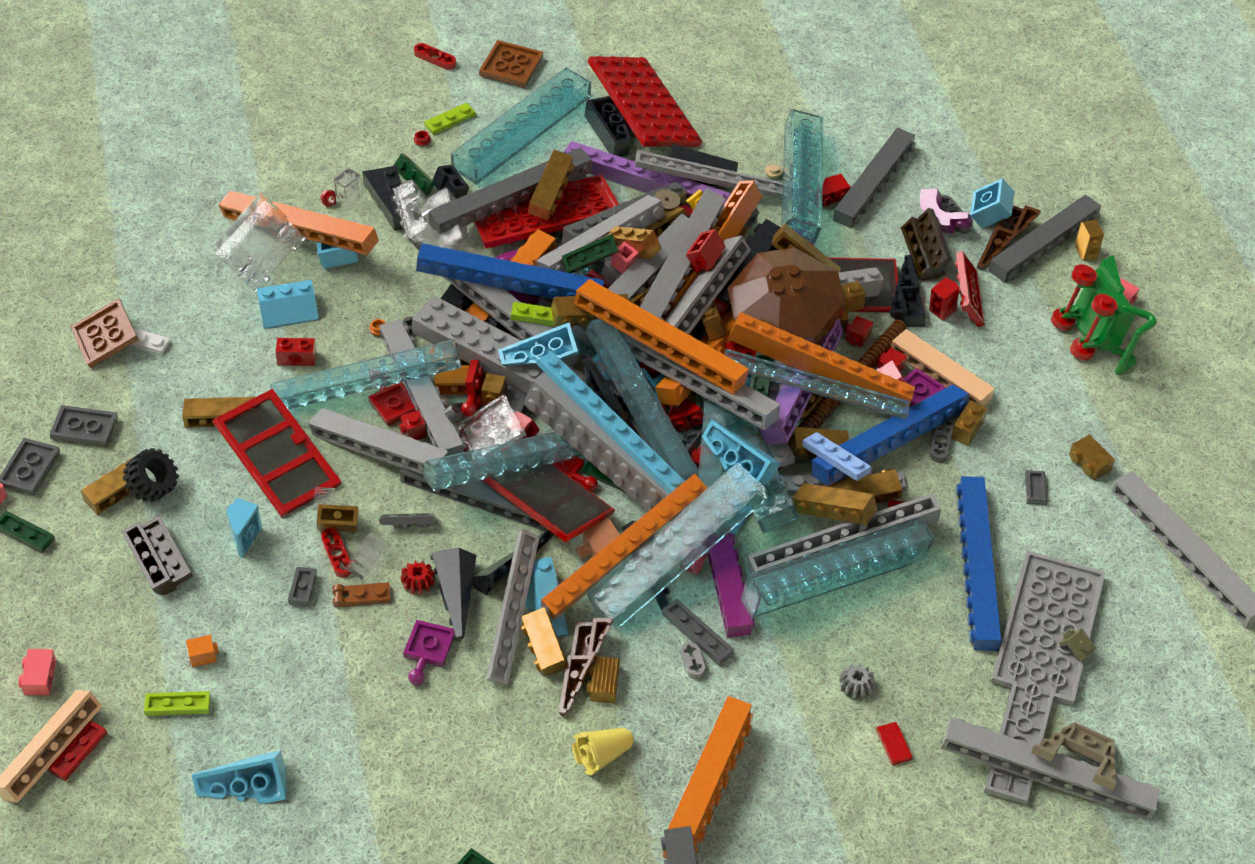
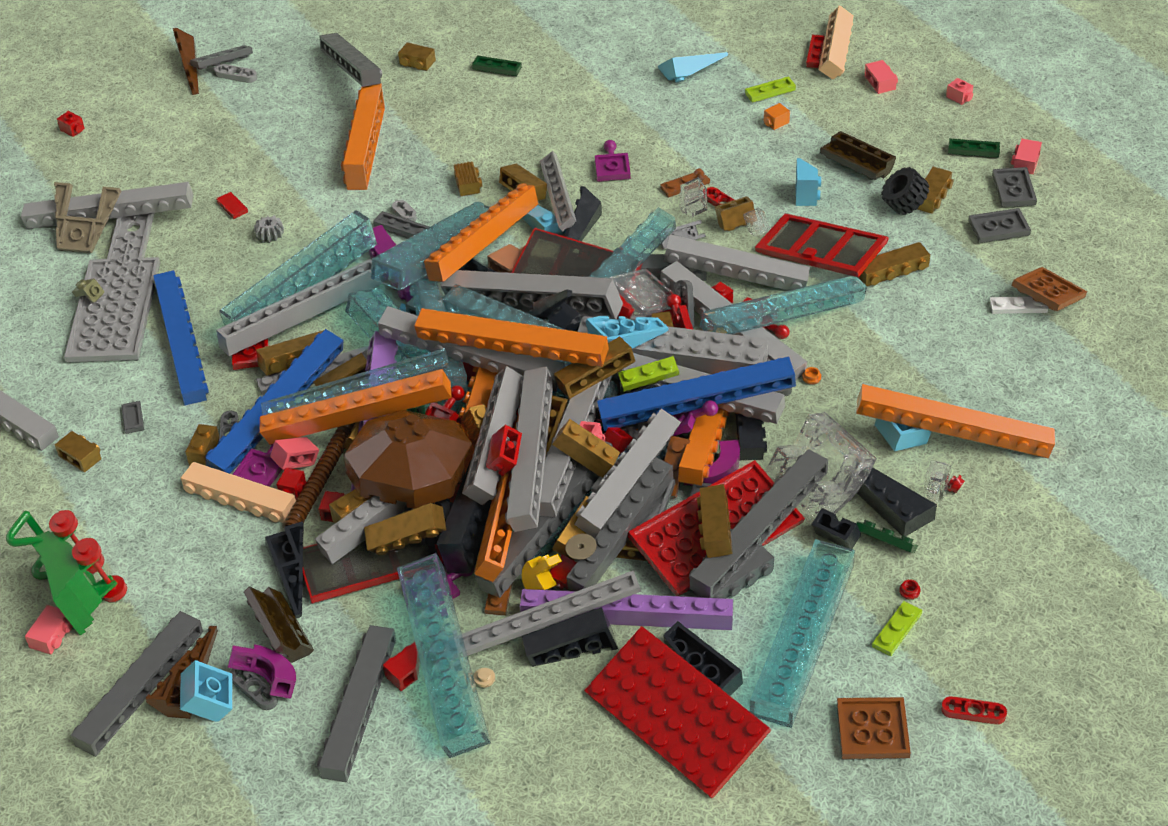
camera: 165 degrees right, 5 degrees down
(258, 242) = (981, 378): clear slope -> none
(287, 304) = (912, 368): medium azure slope -> none
(296, 351) = (868, 325): red brick -> none
(302, 586) = (733, 173): dark grey plate -> none
(417, 577) = (647, 200): red gear -> none
(456, 575) = (615, 204): wedge -> none
(586, 644) = (487, 187): reddish brown wedge -> none
(590, 253) = (622, 418): dark green plate -> none
(600, 747) = (450, 136): light yellow cone -> none
(610, 422) = (531, 285): medium azure plate -> none
(733, 449) = (387, 296): medium azure wedge -> none
(835, 503) = (313, 312): pearl gold brick -> none
(836, 456) = (320, 341): light blue plate -> none
(944, 298) = (246, 555): red brick -> none
(969, 289) = (220, 579): red plate -> none
(1089, 240) = (84, 679): pearl gold brick -> none

